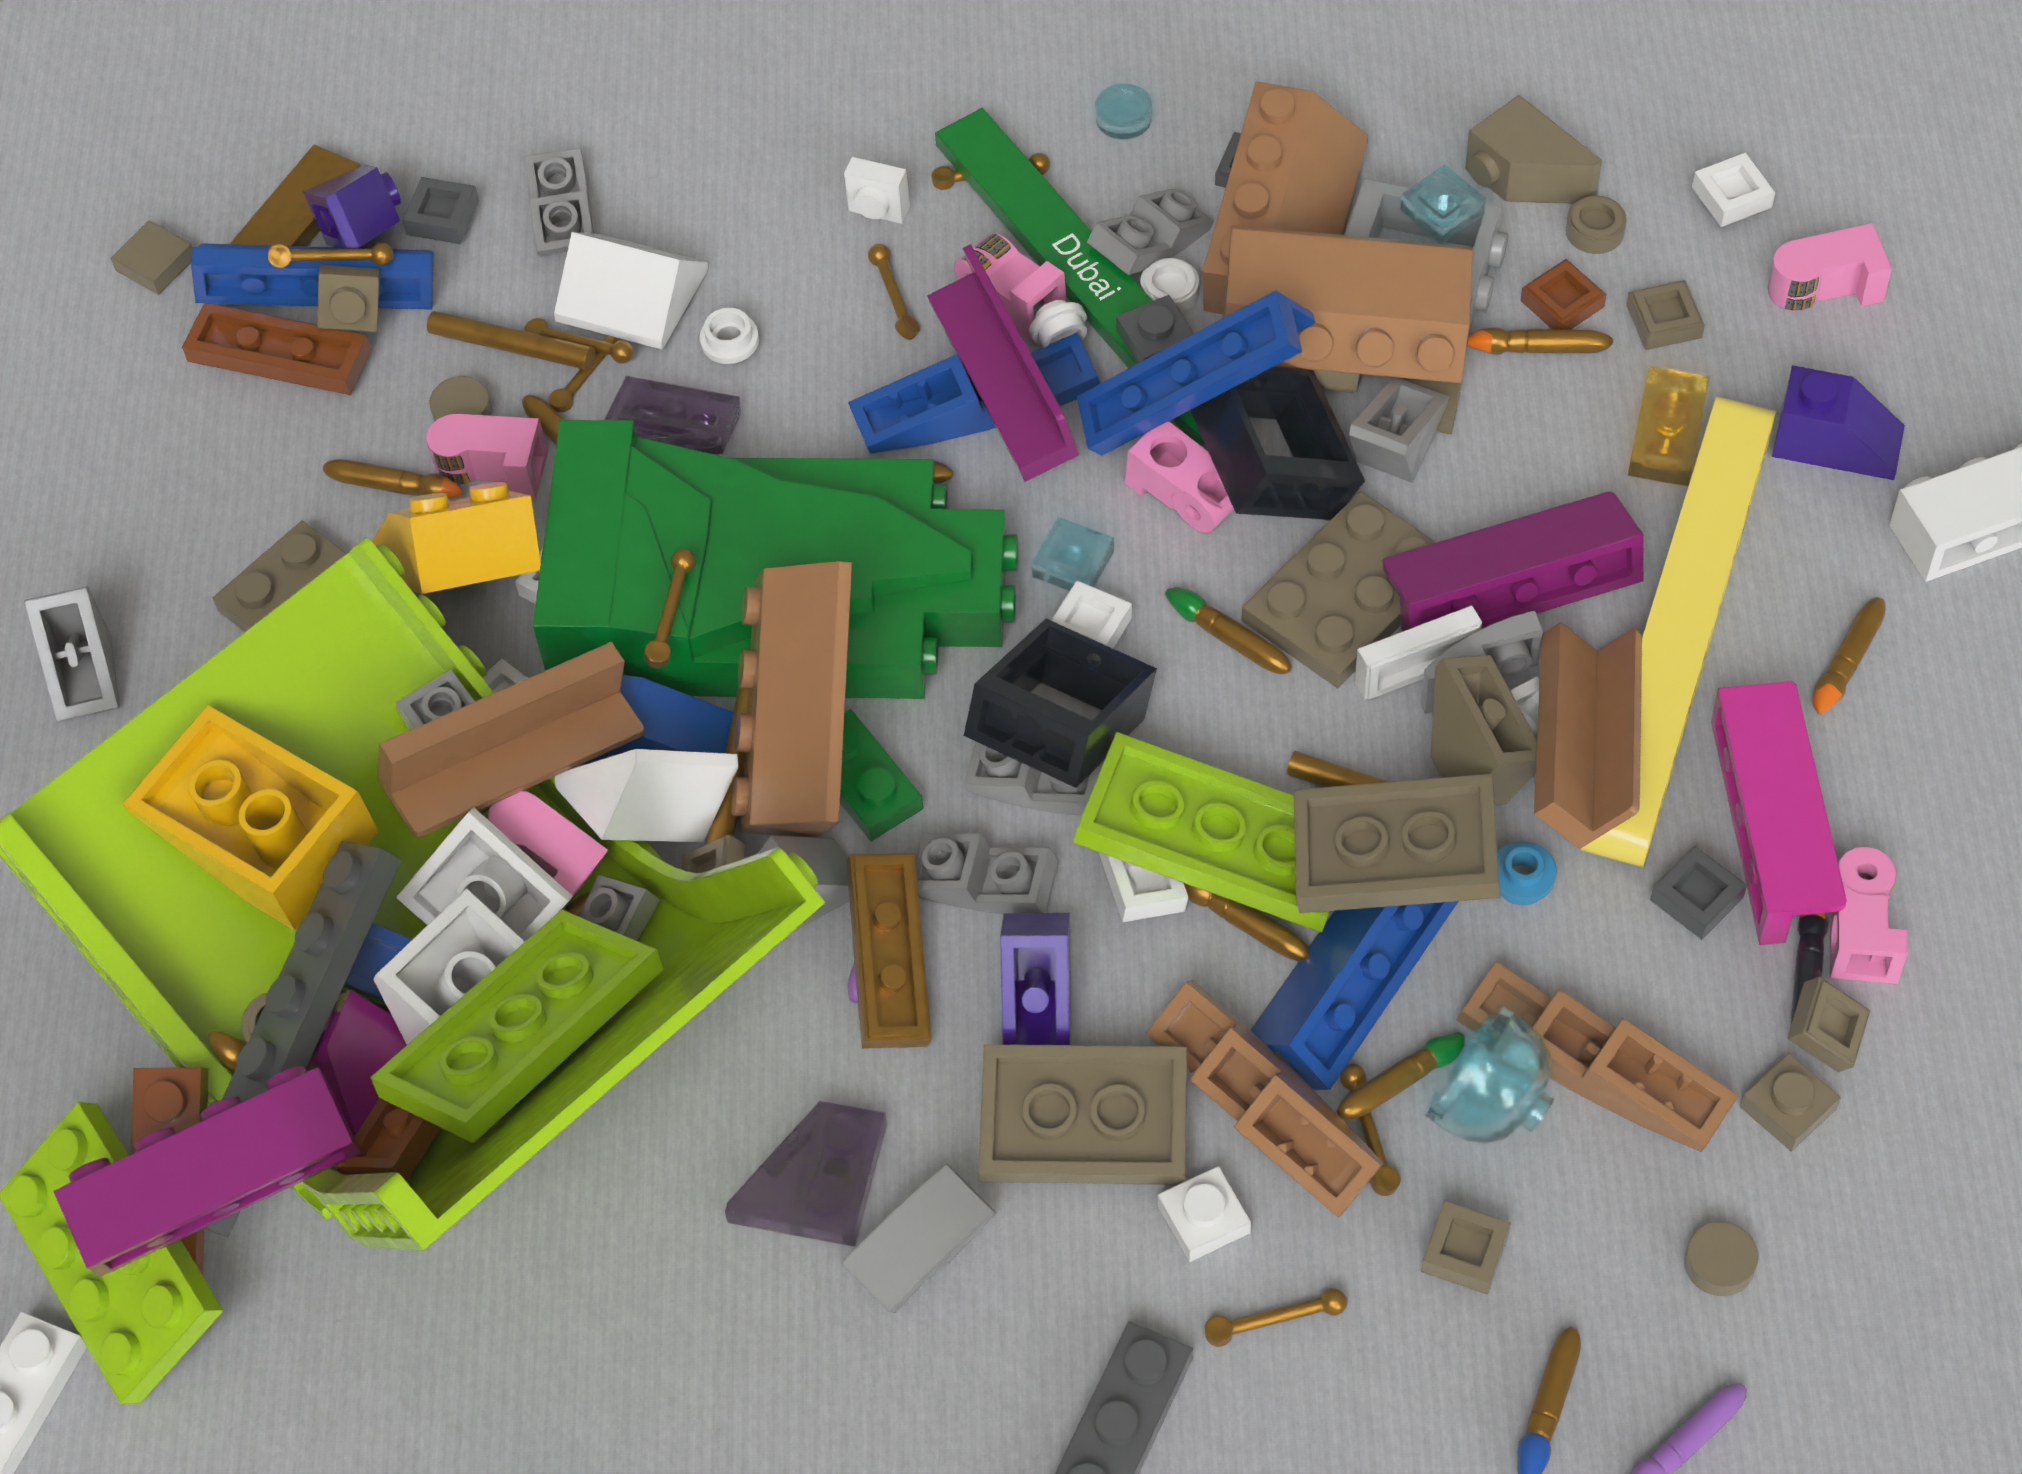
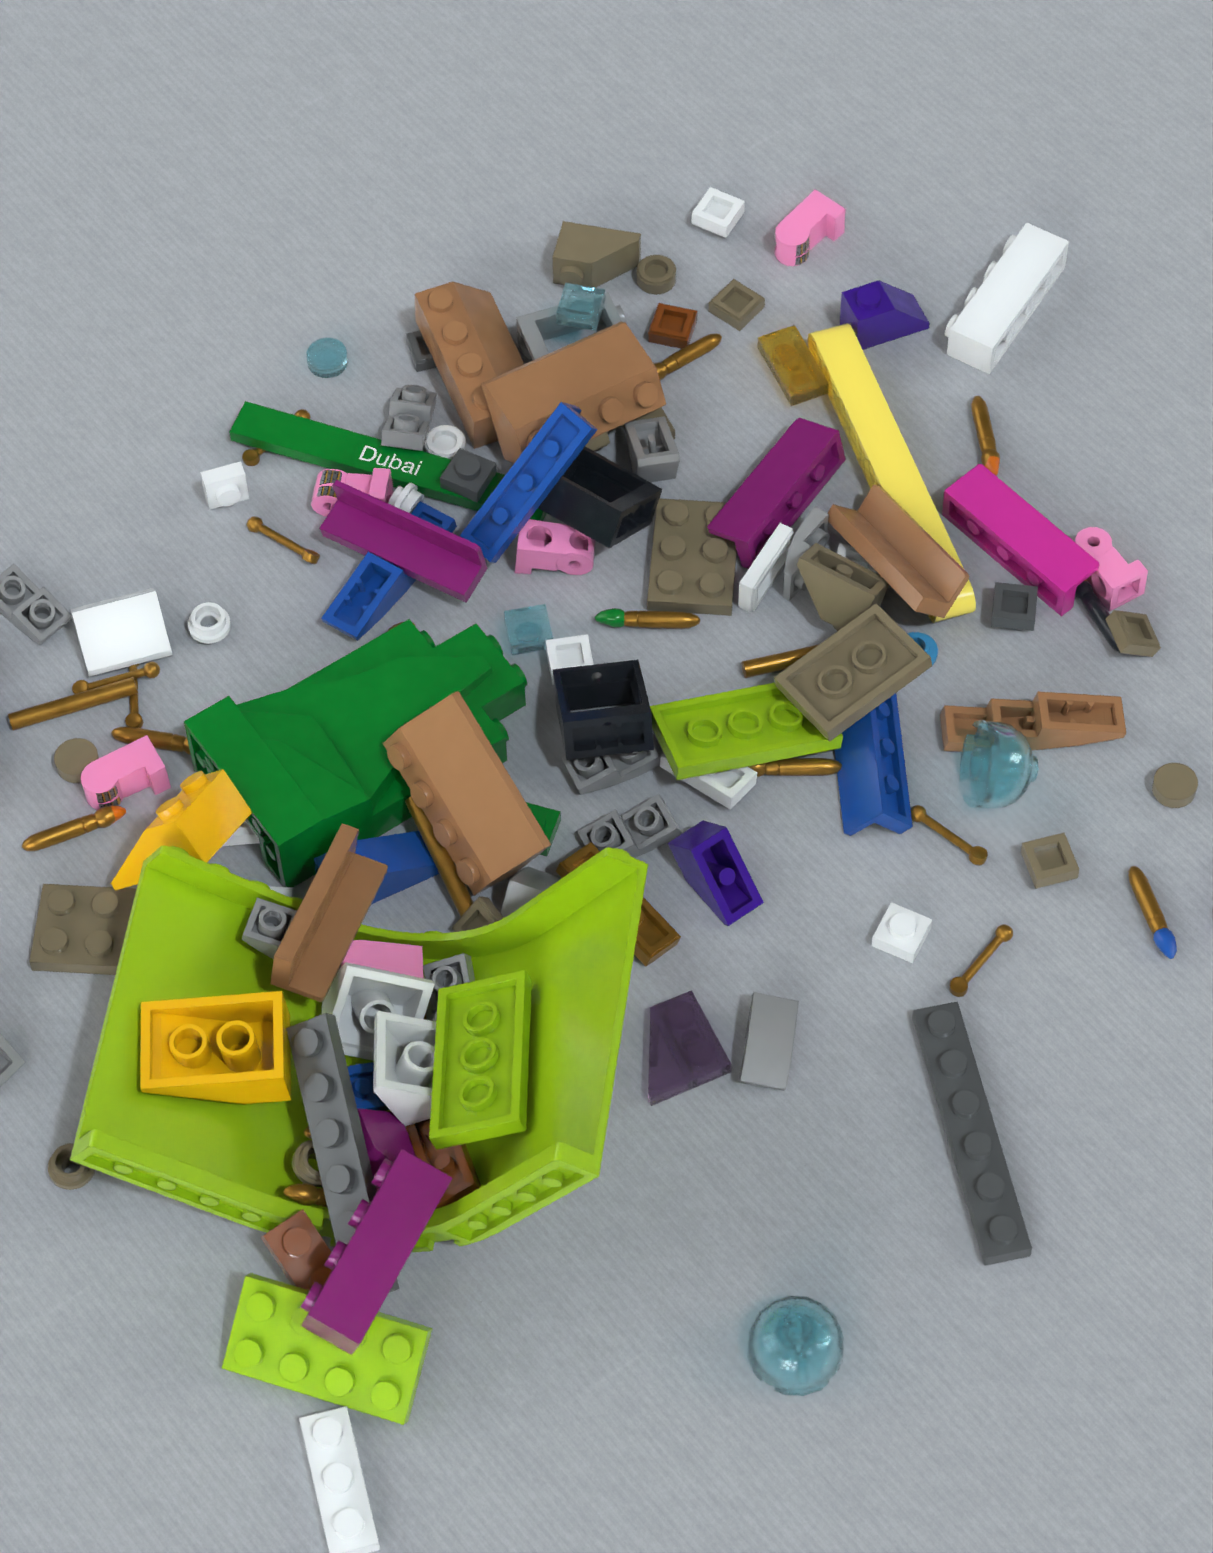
camera: 40 degrees left, 0 degrees up
(650, 794) = (420, 902): white slope -> none
(658, 651) = (364, 815): pearl gold hinge -> none
(677, 414) = (236, 678): clear purple wing -> none
(1083, 1114) = (799, 921): dark tan plate -> none
(1267, 1099) = (887, 850): medium nougat slope -> none
(1435, 1054) = (949, 775): pearl gold piece -> none
(1790, 1102) = (1144, 685): dark tan plate -> none

